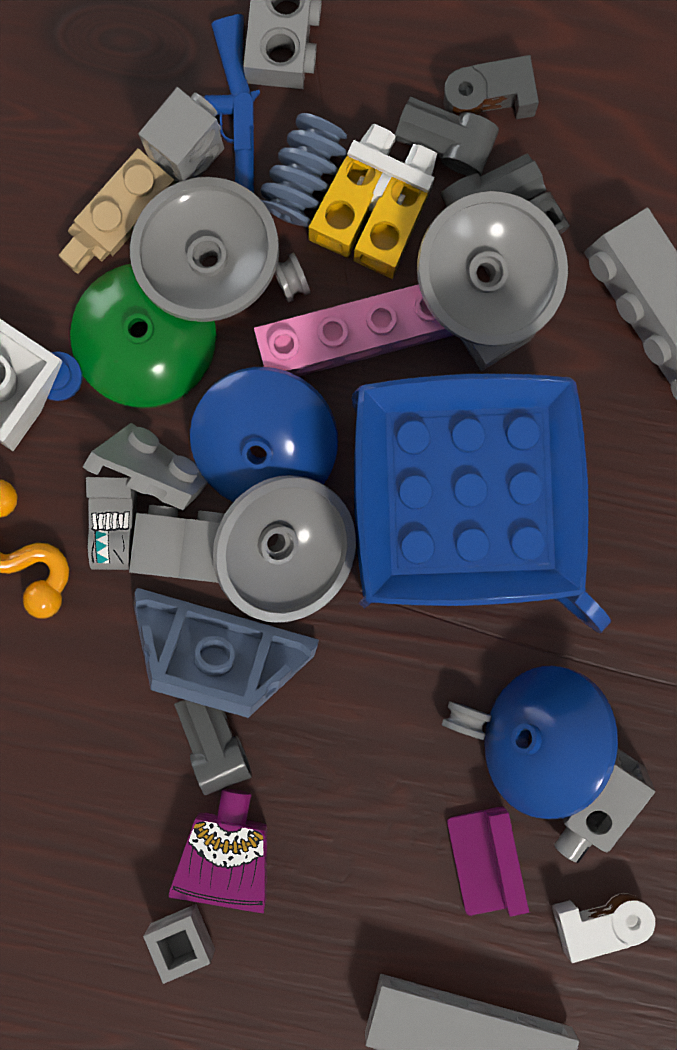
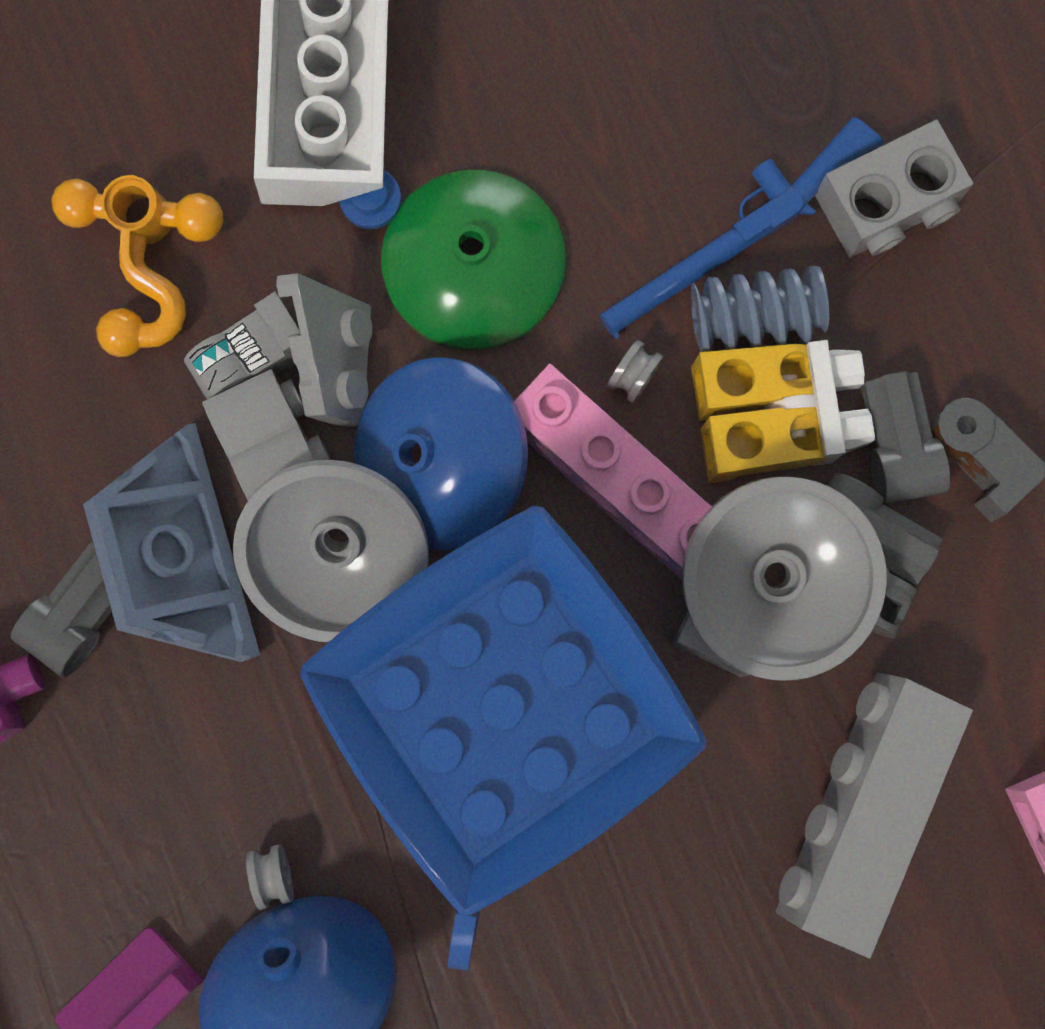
camera: 60 degrees right, 5 degrees down
(114, 211) = (585, 148): tan hinge -> none
(183, 136) = (707, 159): light grey brick -> none
(201, 221) = (610, 226): light grey dish -> none

